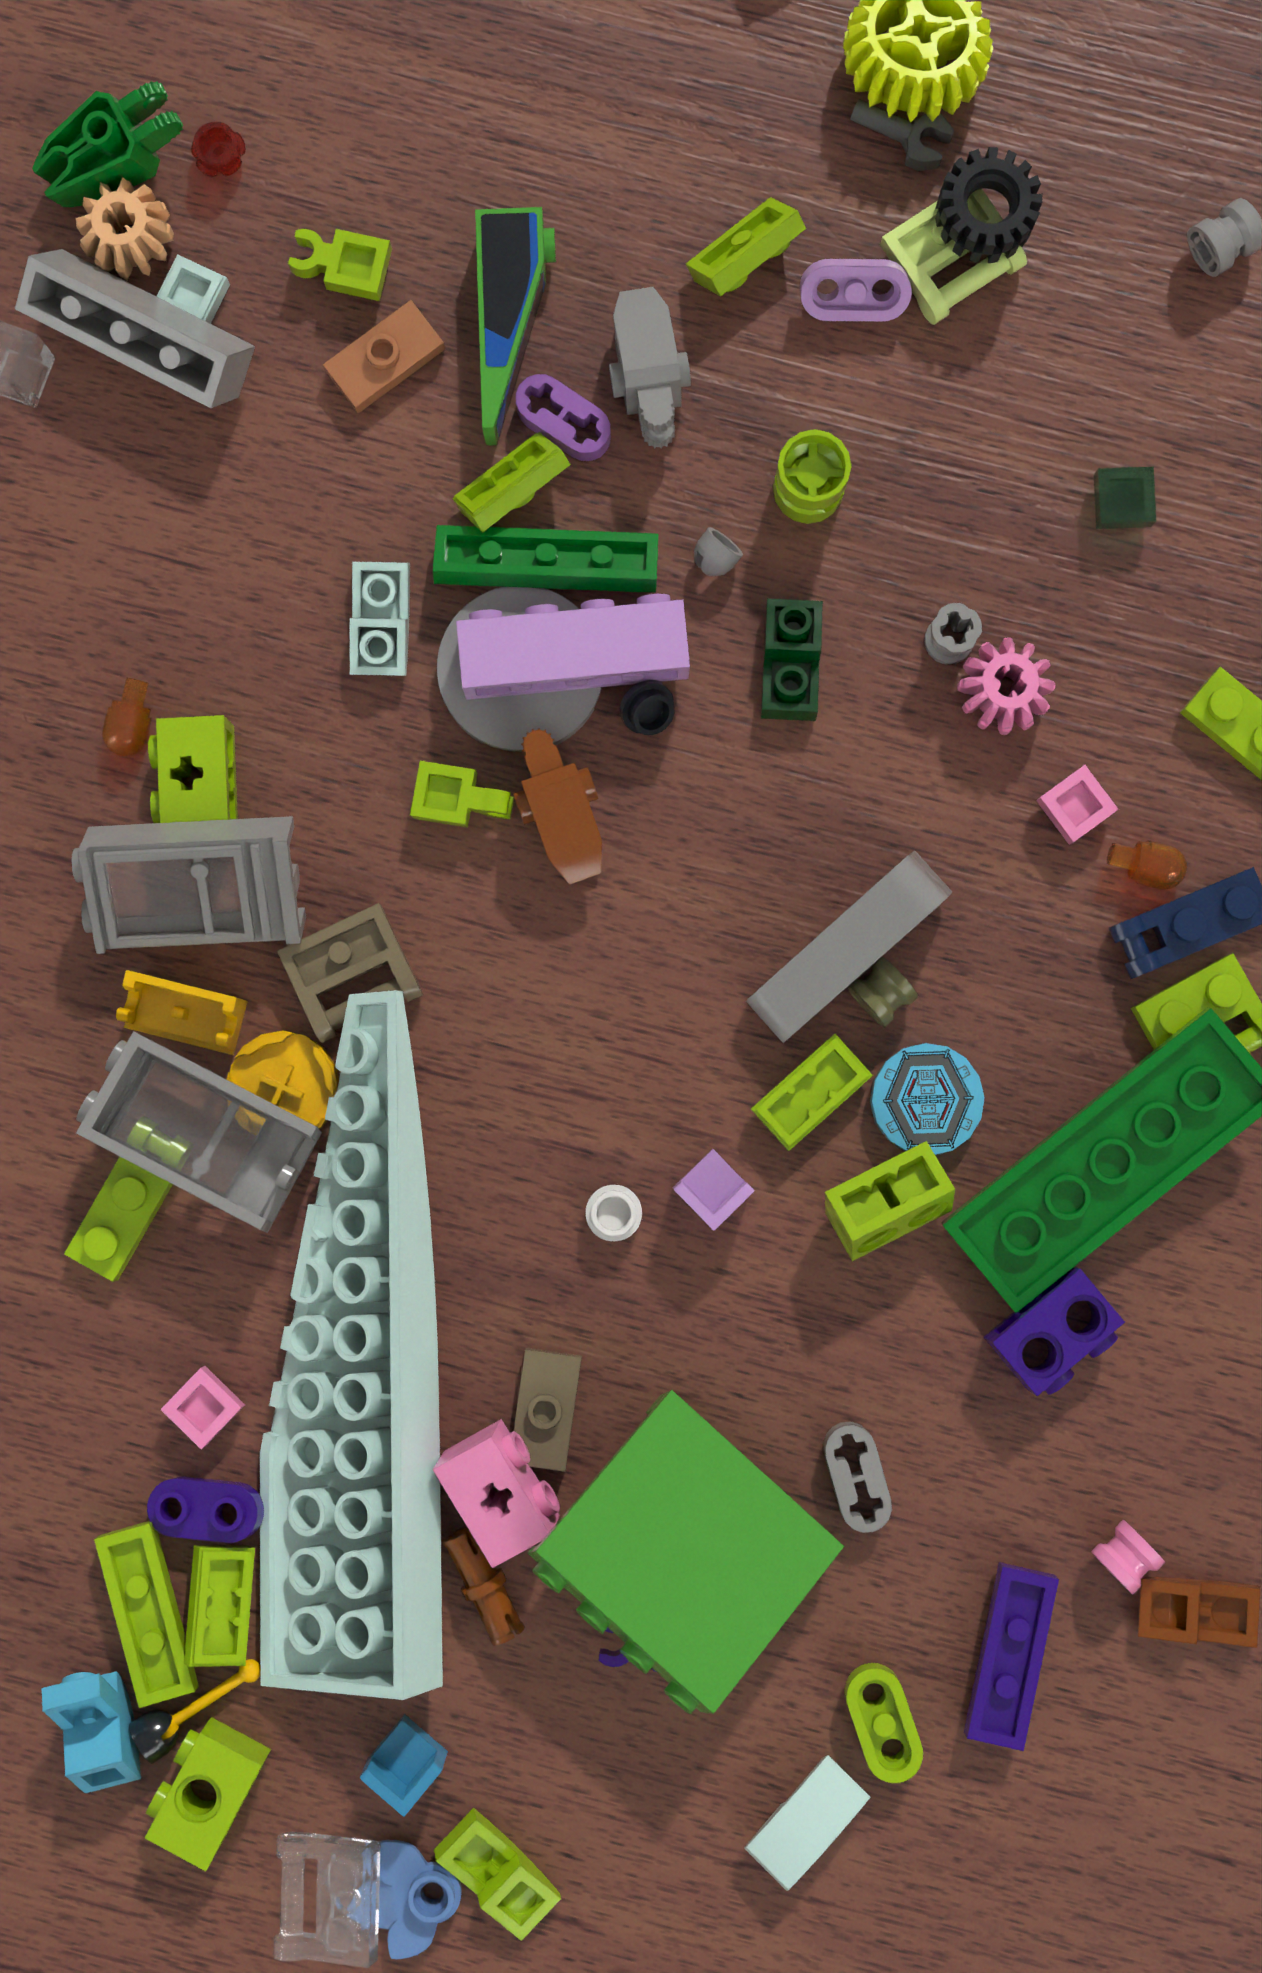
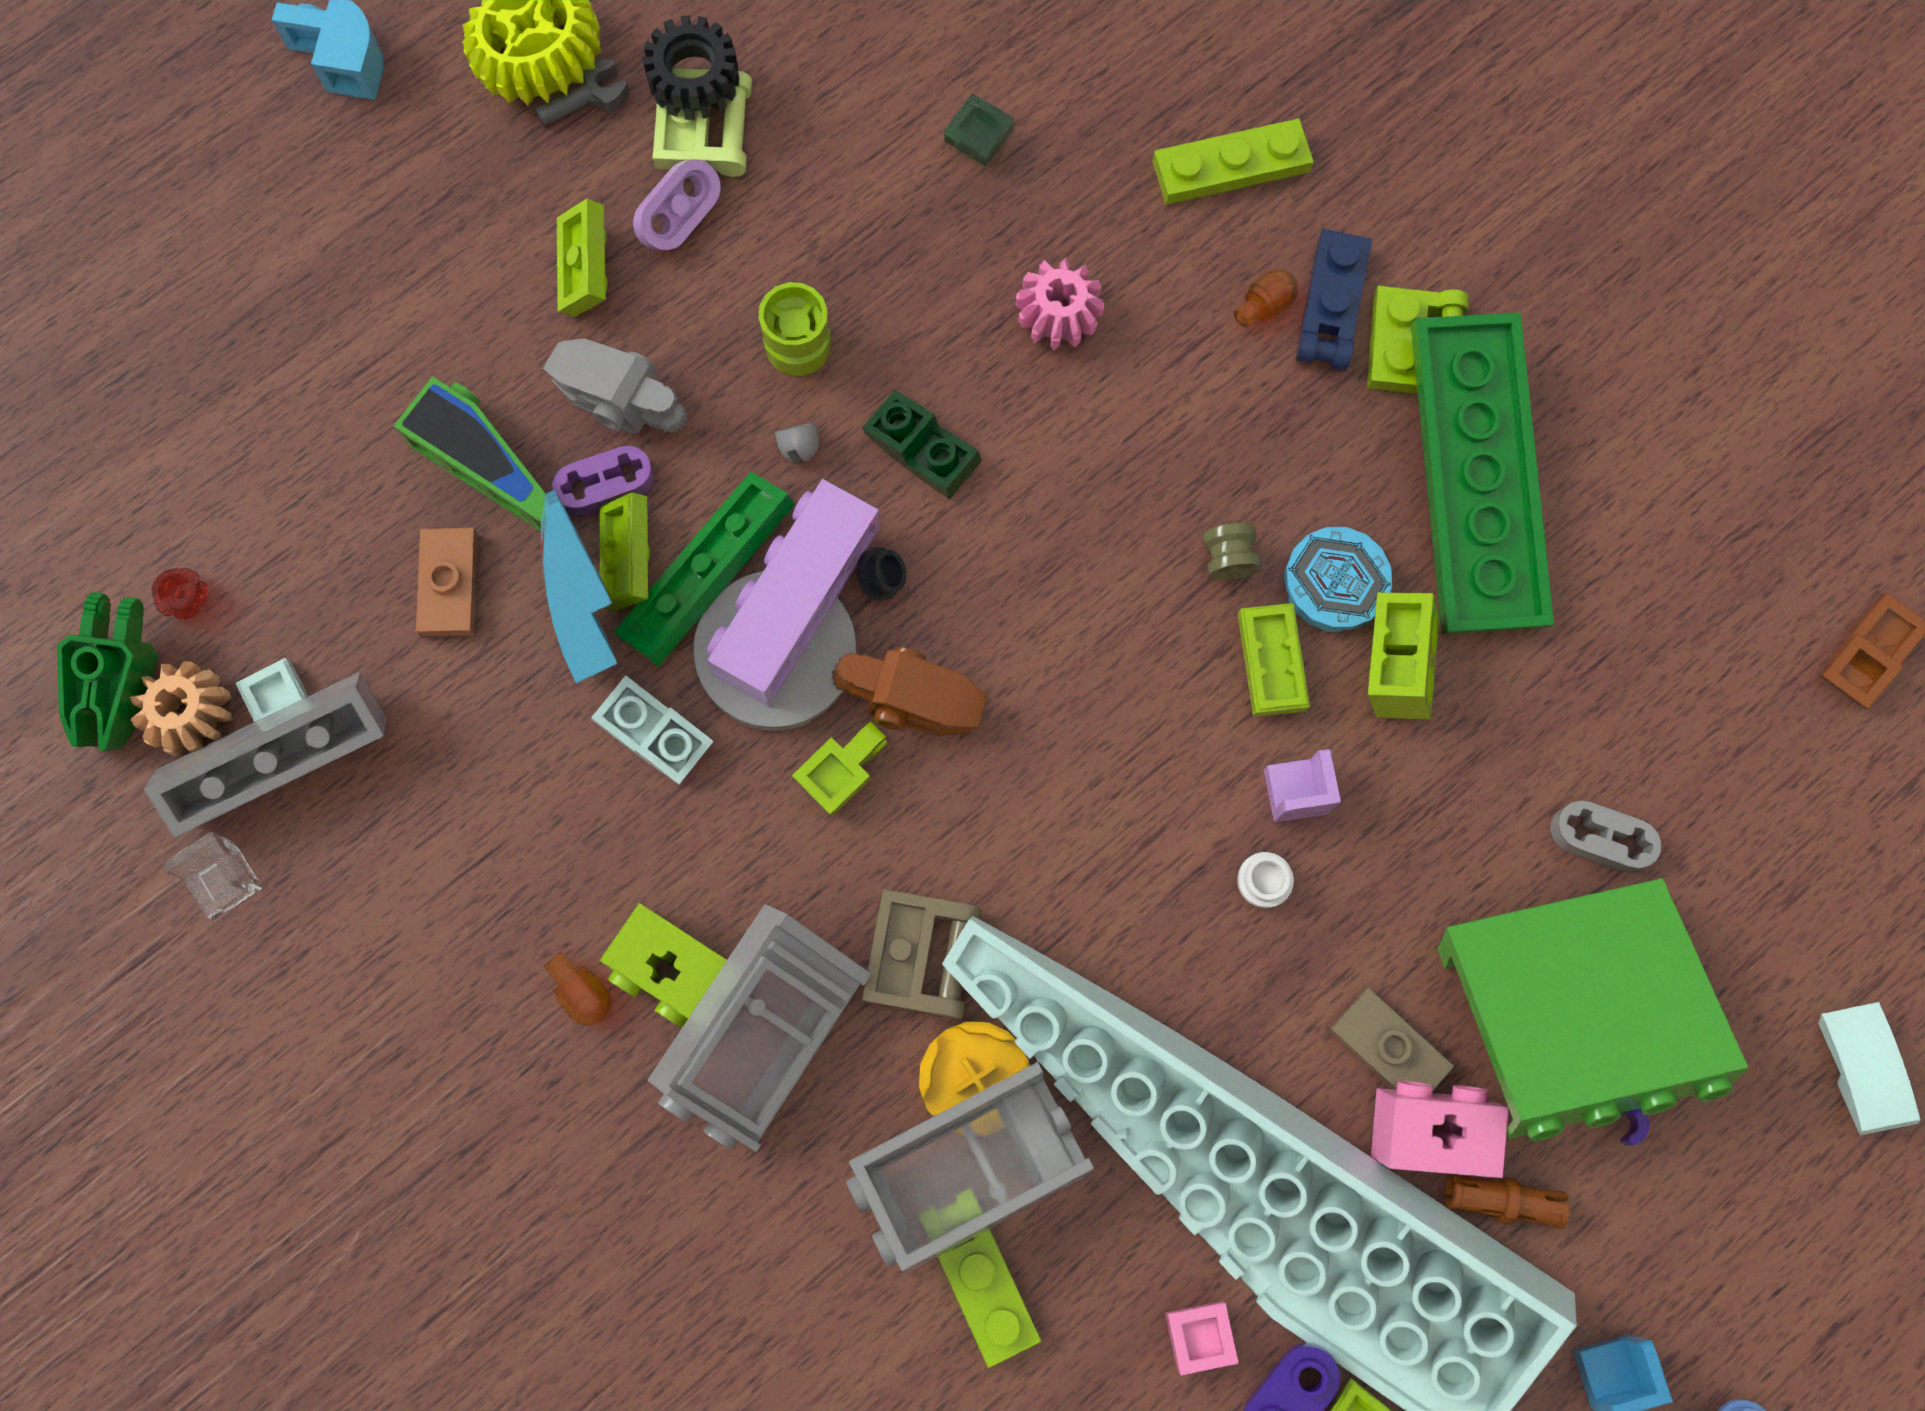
camera: 60 degrees left, 10 degrees down
(182, 1012) = (854, 1118): yellow hinge -> none
(351, 264) = (354, 553): lime plate -> none
(433, 469) = (573, 593): none -> medium azure slope
(499, 1874) = (1760, 1362): lime slope -> none
(849, 946) = (1182, 550): light grey beam -> none
(883, 1720) = (1818, 950): lime plate -> none
(961, 620) = (982, 304): light grey bush -> none
(1011, 1656) = (1827, 815): dark purple plate -> none
(1046, 1319) = (1577, 604): dark purple brick -> none
(1077, 804) = (1186, 316): bright pink plate -> none
(1128, 1557) = (1801, 672): bright pink wheel -> none

